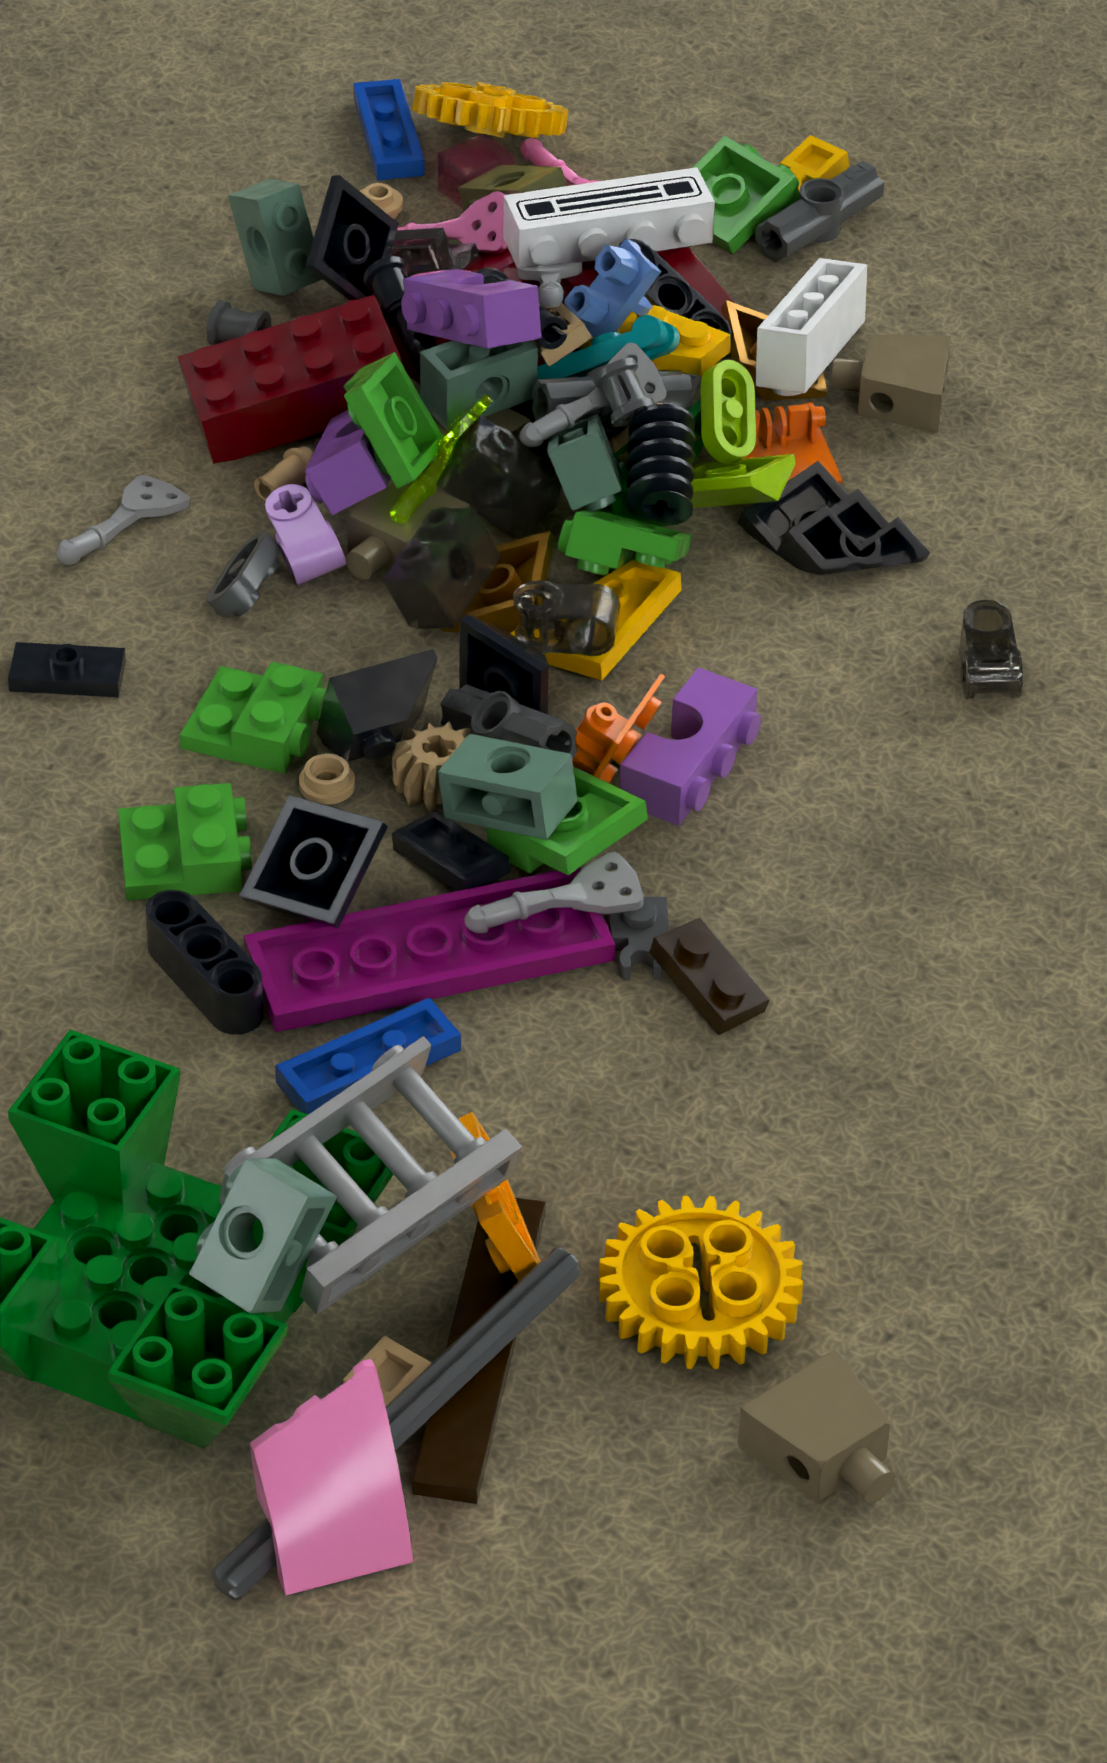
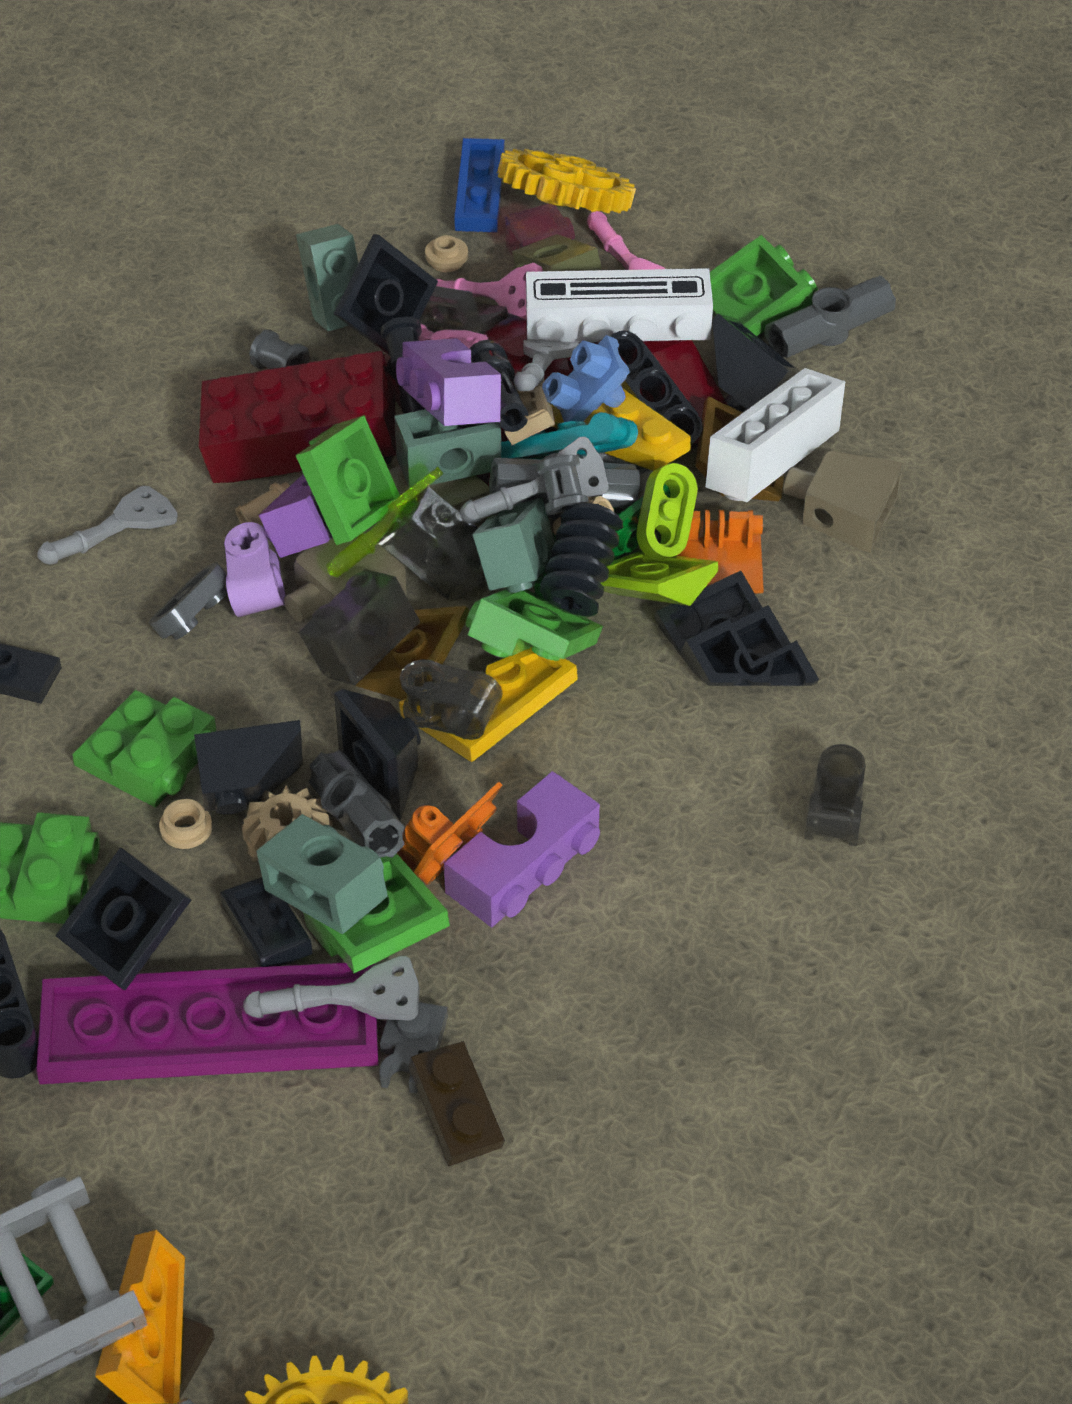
camera: 15 degrees right, 5 degrees up
(336, 1065) = (108, 1132): blue plate -> none
(757, 267) = (746, 364): none -> black slope
(816, 160) = (841, 269): yellow plate -> none

